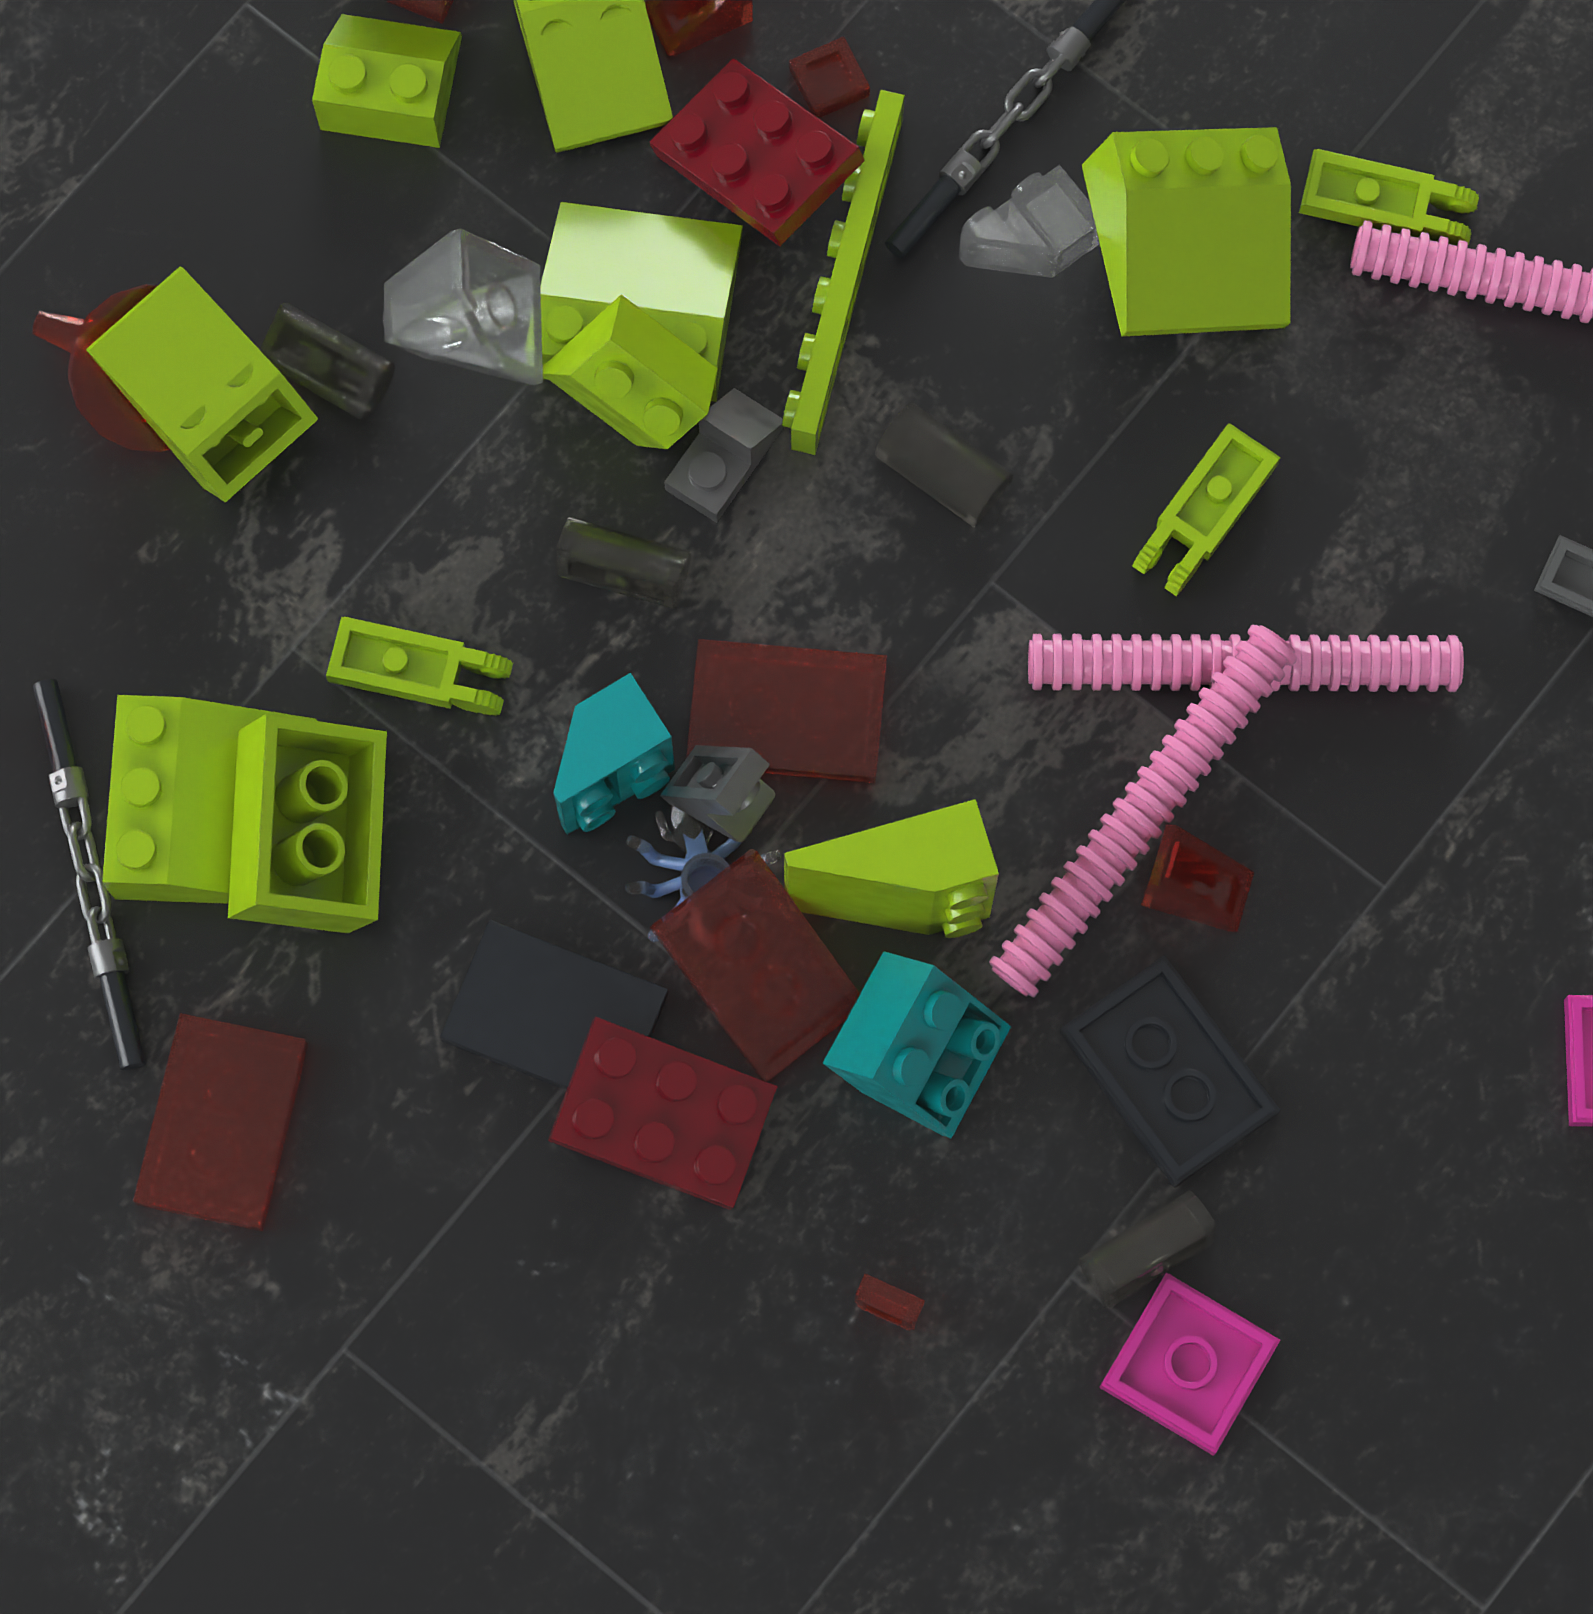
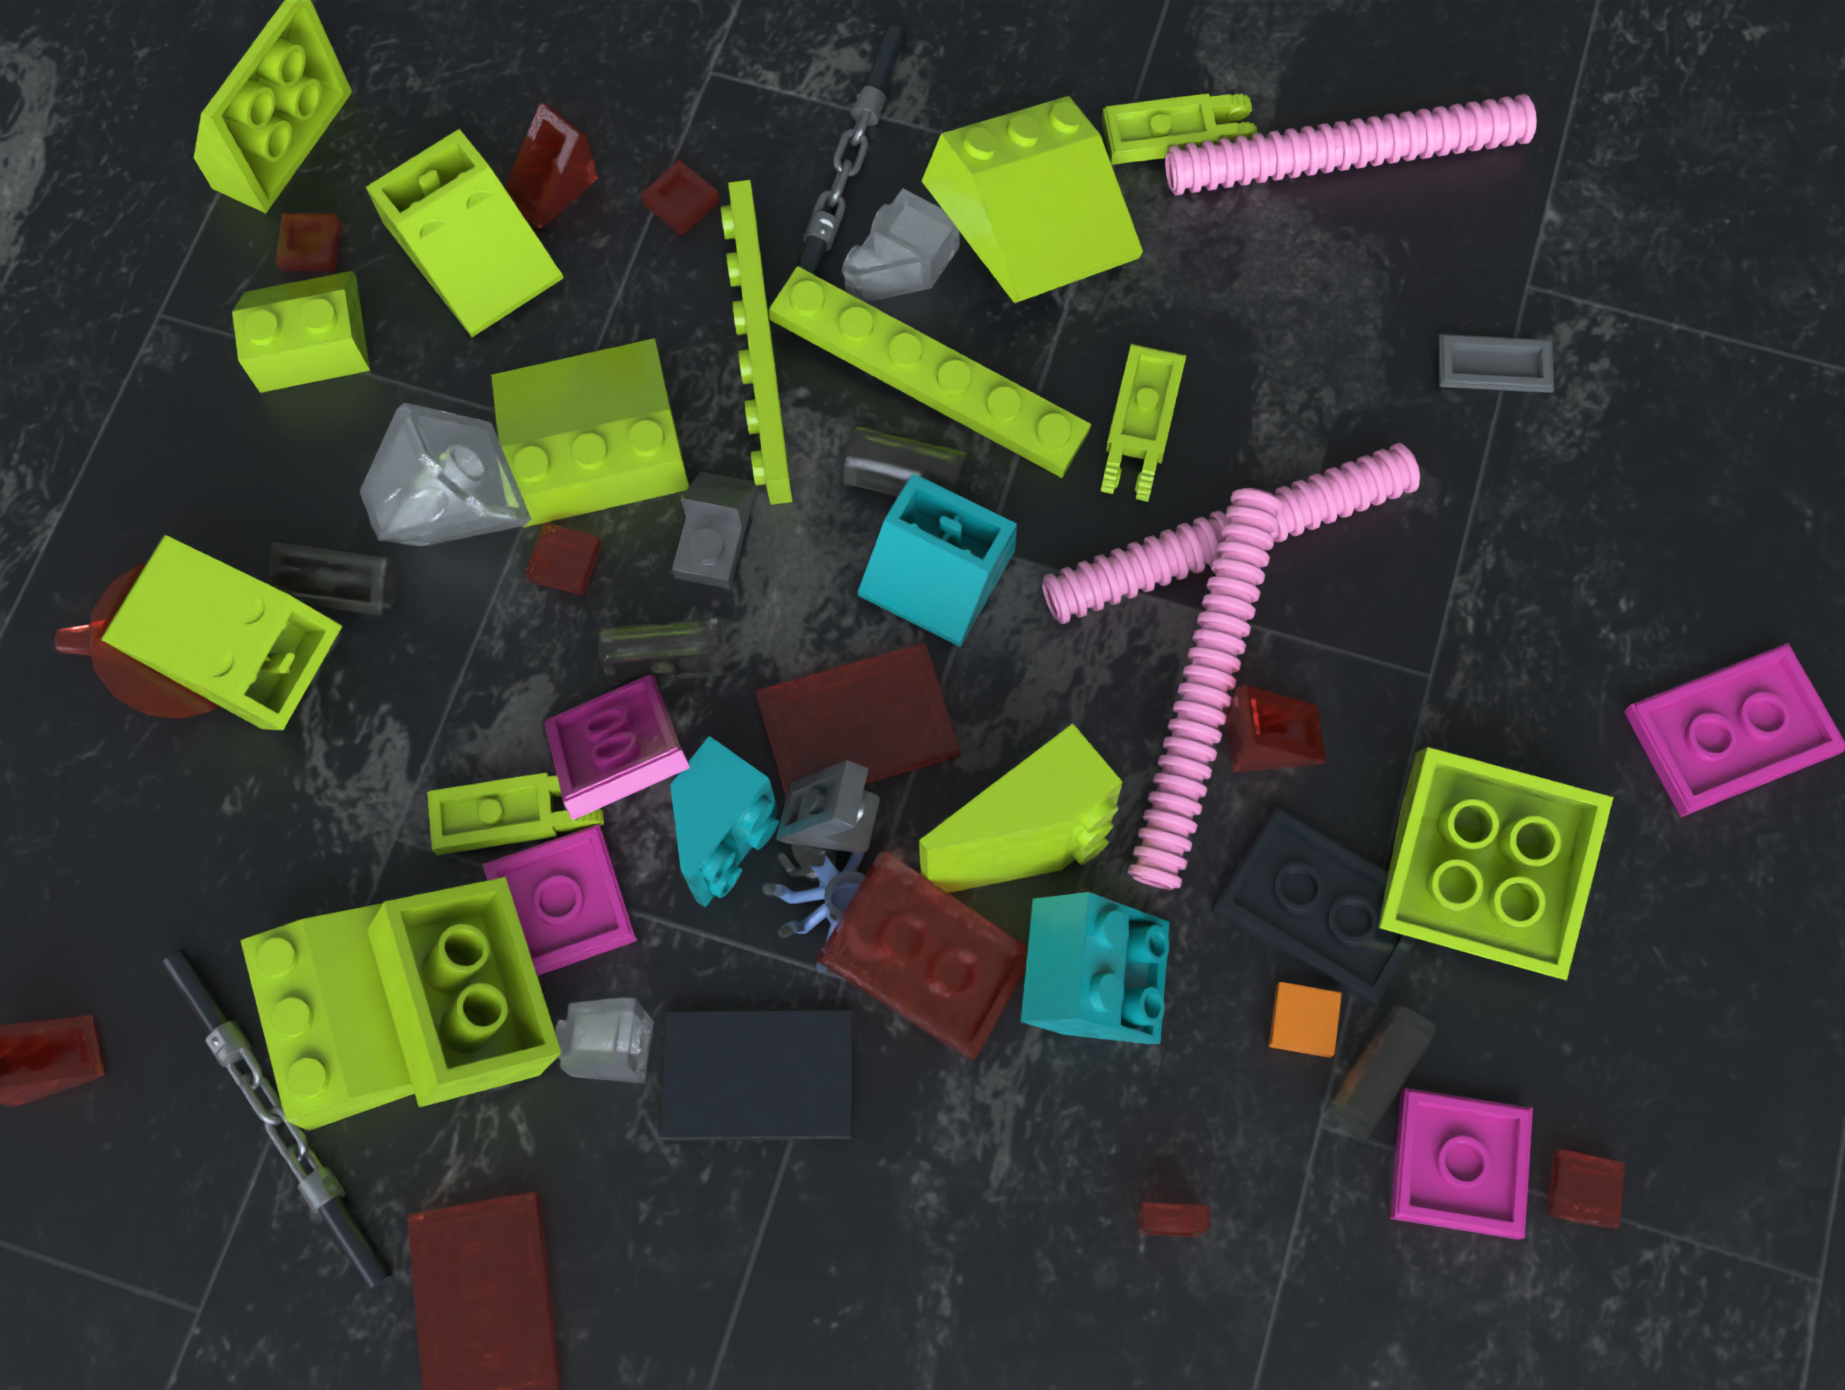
camera: 20 degrees left, 5 degrees down
(423, 925) = (605, 1040): none -> clear slope
(437, 773) = (566, 898): none -> dark pink tile
(538, 643) = (614, 746): none -> dark pink tile
(560, 428) = (563, 559): none -> clear red tile
(635, 376) = (610, 484): lime slope -> none
(662, 1113) = (893, 1127): dark red plate -> none
(757, 151) = (644, 271): dark red plate -> none
(932, 577) = (937, 559): none -> teal slope
(1008, 372) = (929, 371): none -> lime plate
(1100, 1171) = (1305, 1019): none -> orange tile
(1297, 1435) = (1586, 1189): none -> clear red tile
(1345, 1094) = (1493, 861): none -> lime slope

